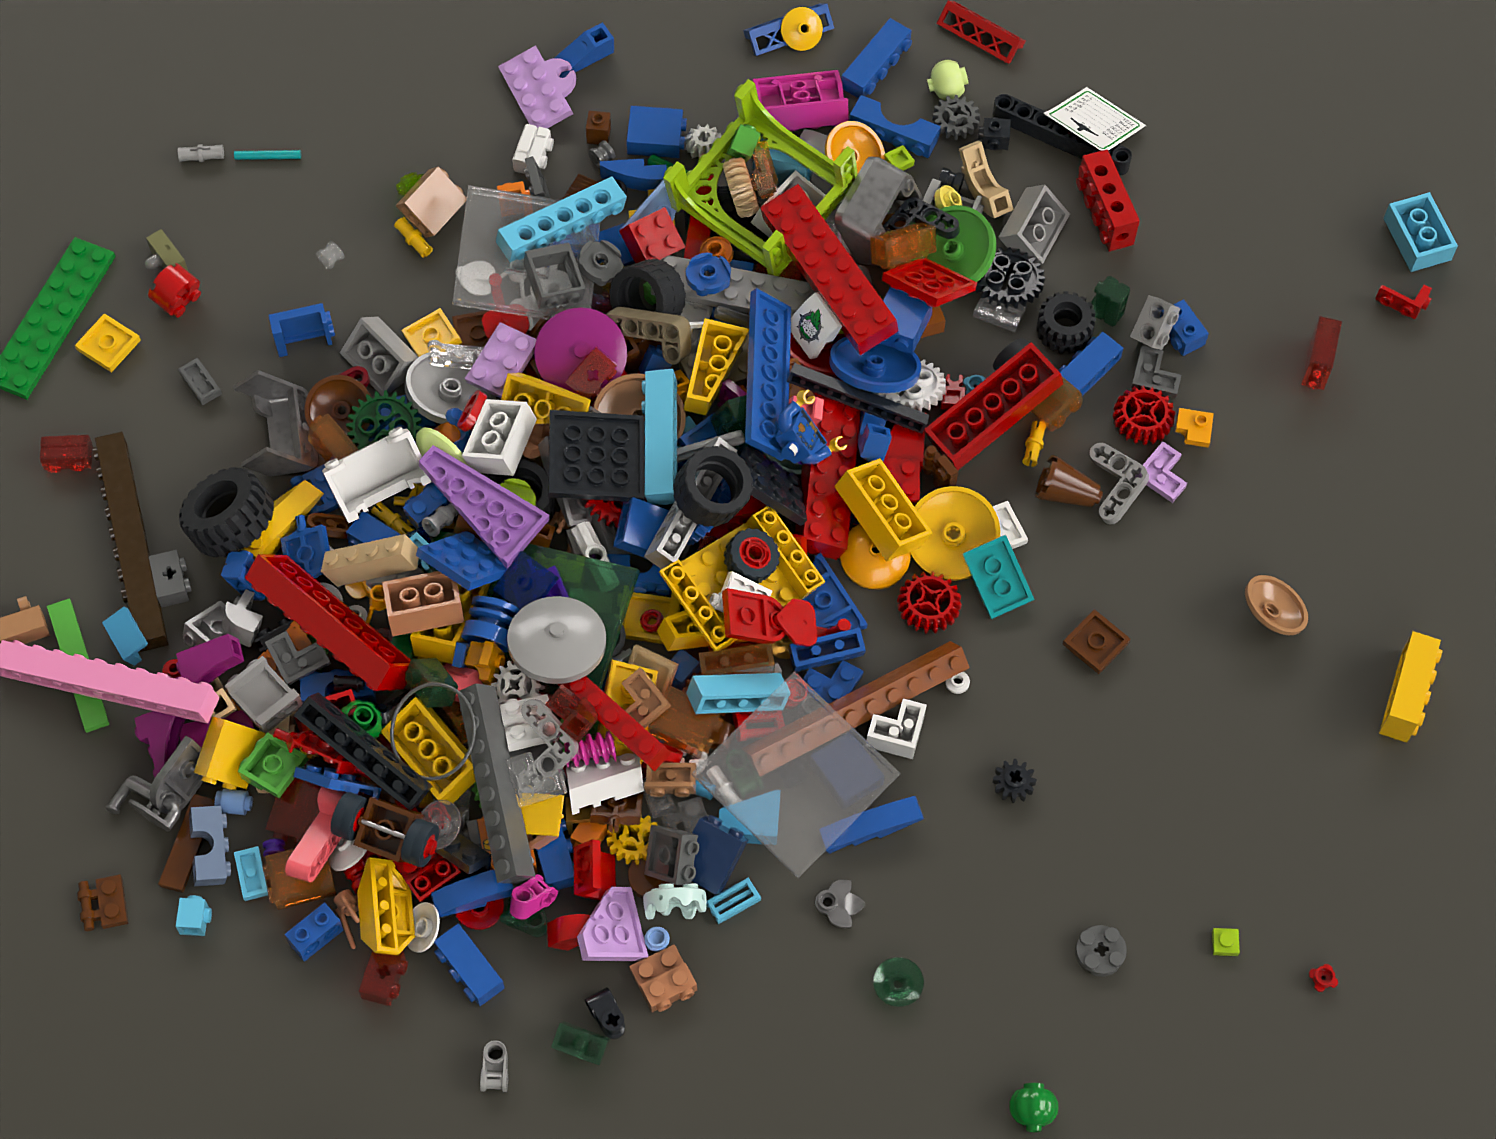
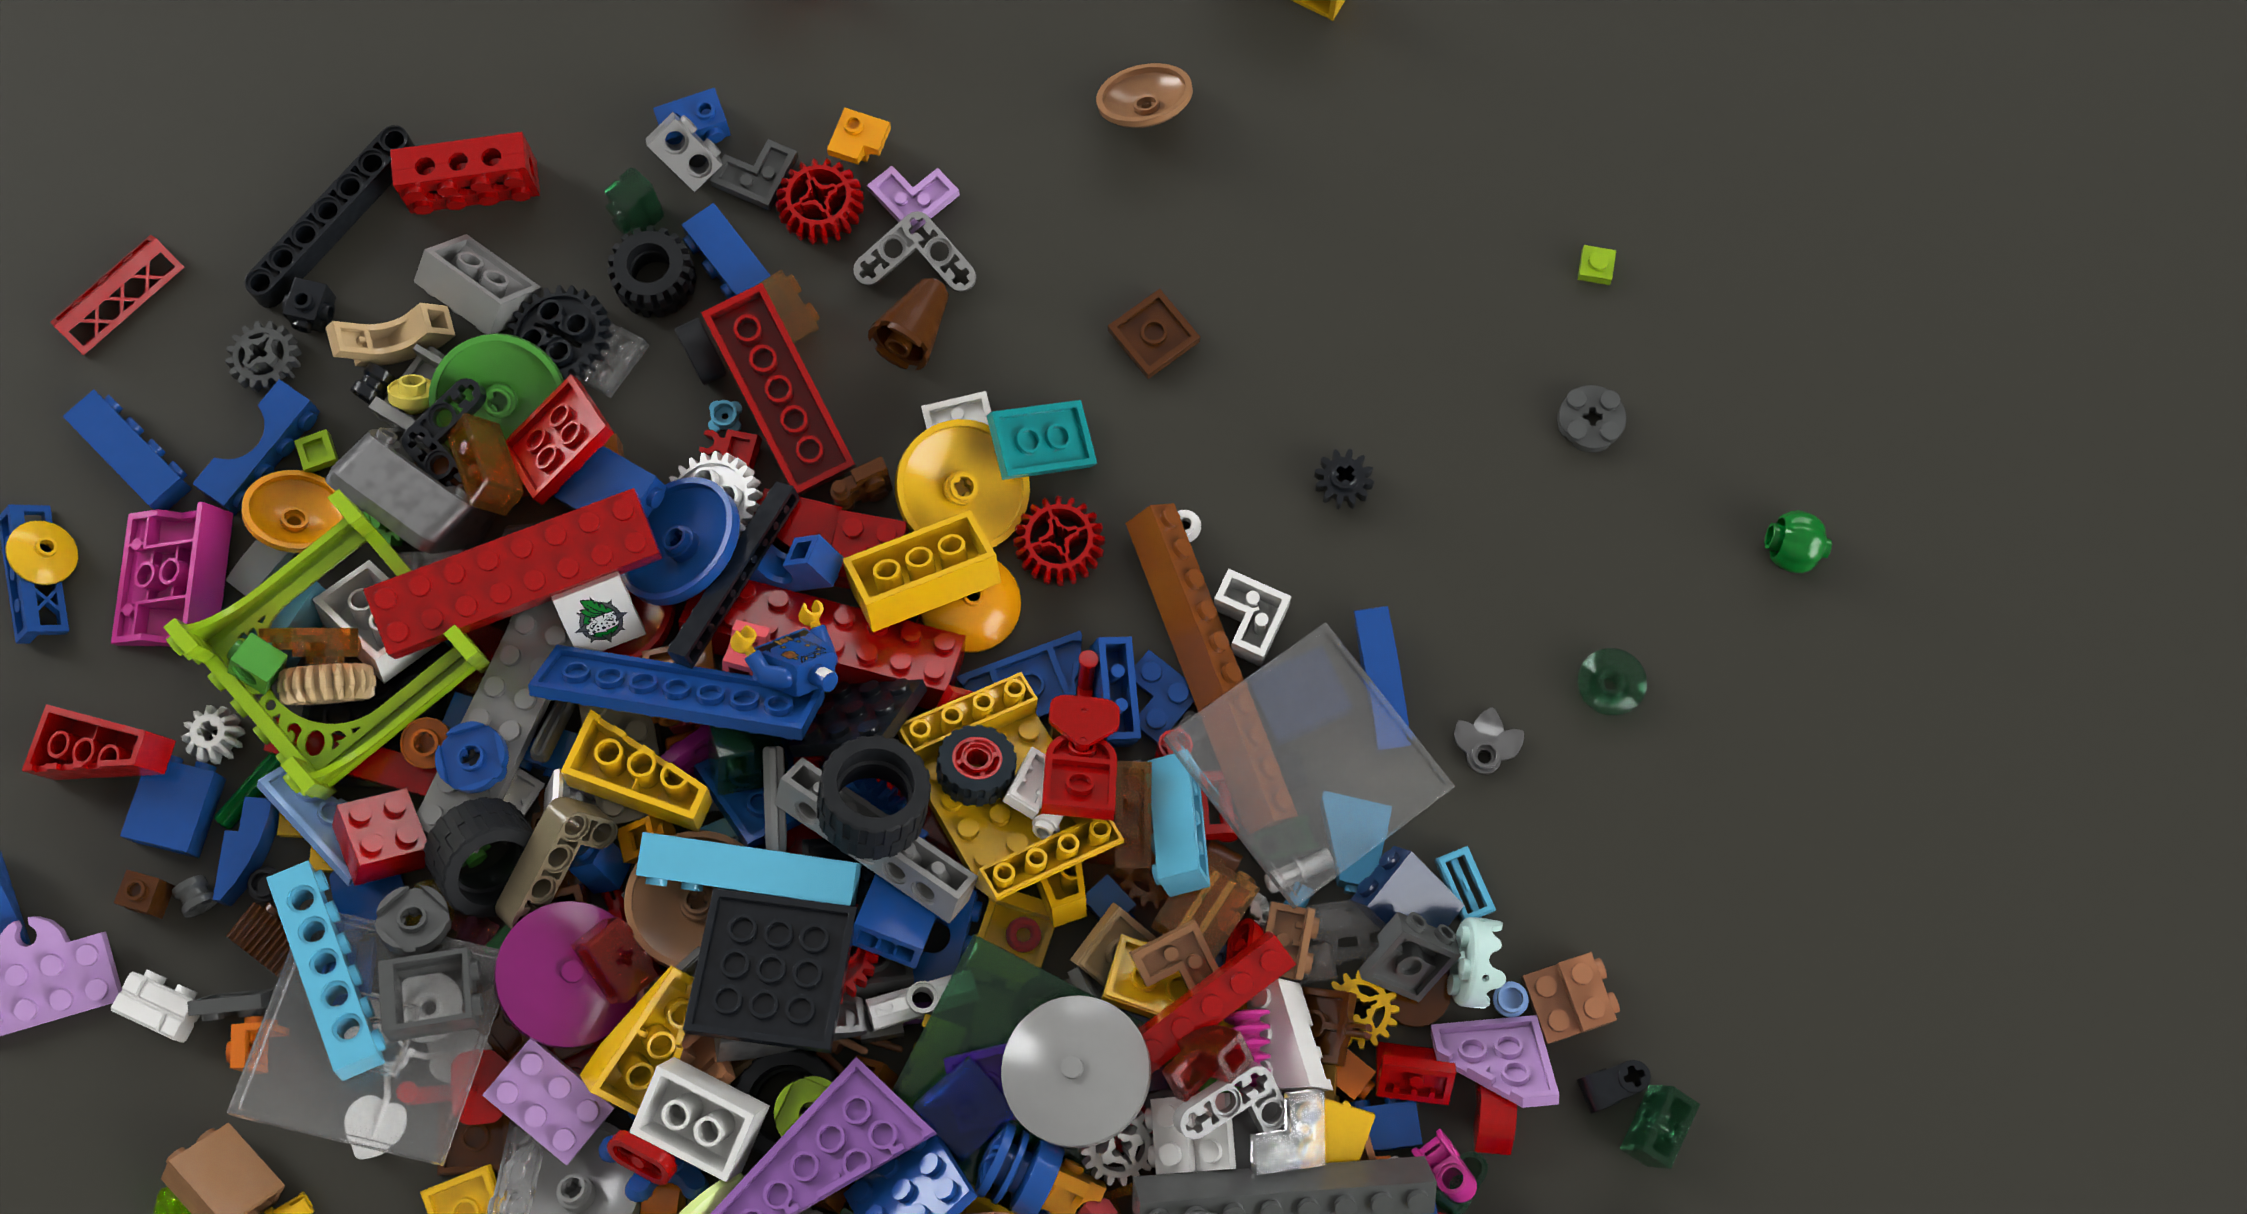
camera: 80 degrees left, 10 degrees up
(683, 79) = (90, 747): none -> red wedge
(947, 79) = (194, 355): yellowish green plant -> none
(1034, 443) = (834, 354): yellow pin -> none
(1095, 119) = (320, 164): white sticker -> none
(1327, 971) = (1659, 151): red plate -> none

